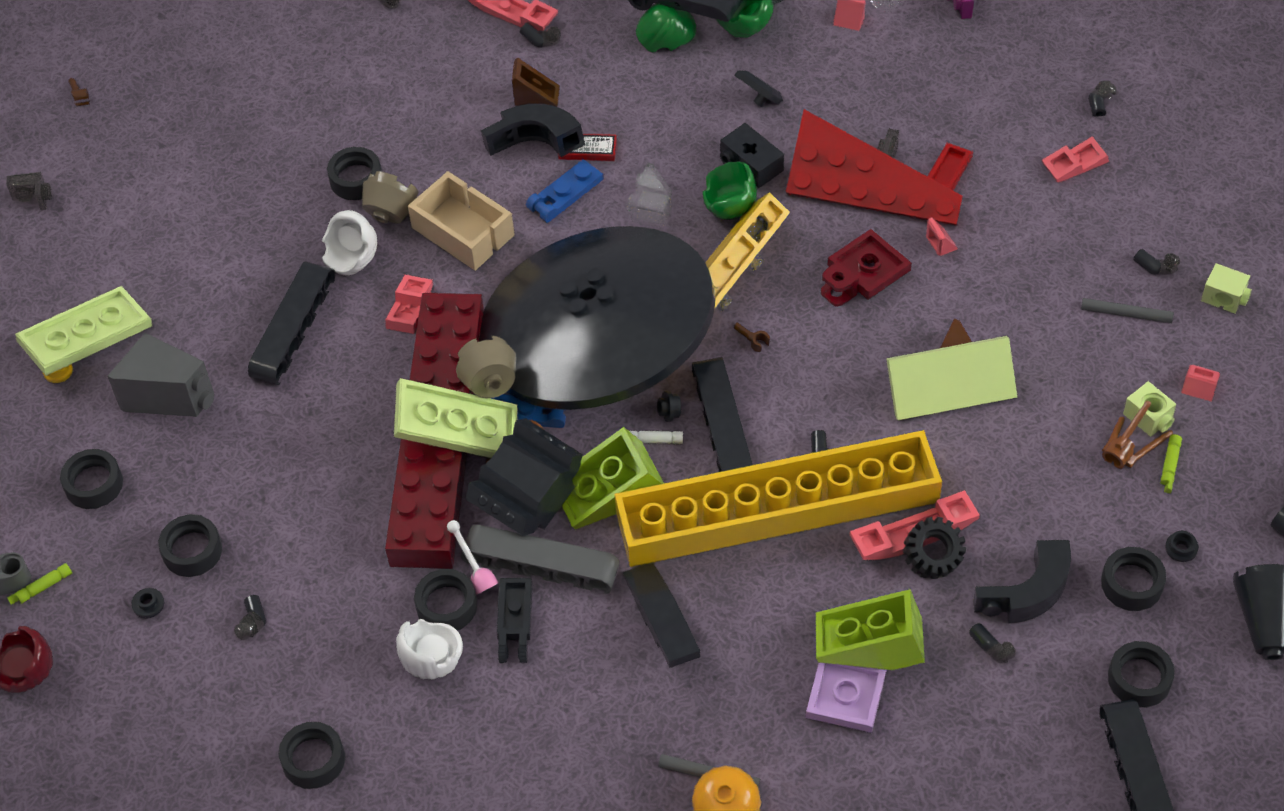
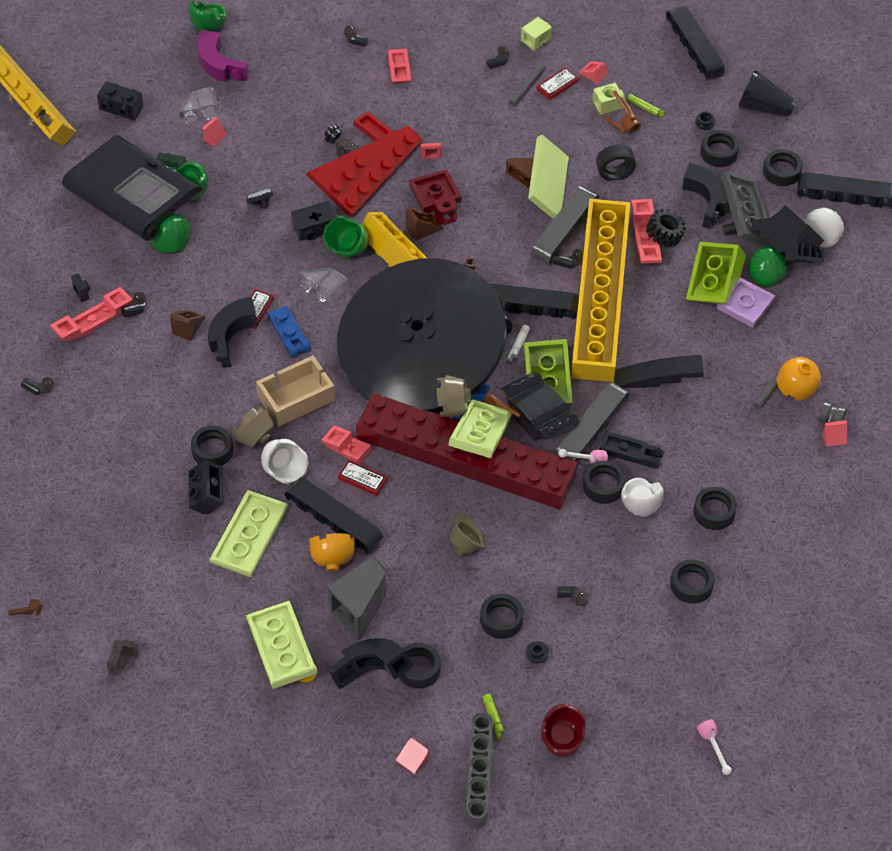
camera: 75 degrees left, 0 degrees up
(76, 423) = (370, 655): none -> black arch
(227, 332) = (332, 551): none -> light orange cylinder
(243, 252) = (249, 533): none -> yellowish green tile
(292, 181) = (205, 487): none -> black brick
(314, 461) = (465, 535): none -> olive piece
(364, 335) = (362, 477): none -> tile
(447, 774) = (713, 522): none -> black tyre
(801, 264) = (421, 223): none -> reddish brown slope
(874, 422) = (563, 225): none -> dark grey beam
(911, 127) = (332, 133): none -> black plate
(929, 703) = (767, 267): none -> green piece
(981, 713) = (791, 236): none -> black slope
(1020, 448) = (613, 153): none -> black tyre
(1023, 645) = (745, 206): none -> dark grey tile
(1046, 762) = (827, 225): none -> white piece
(1150, 344) = (557, 83): none -> tile

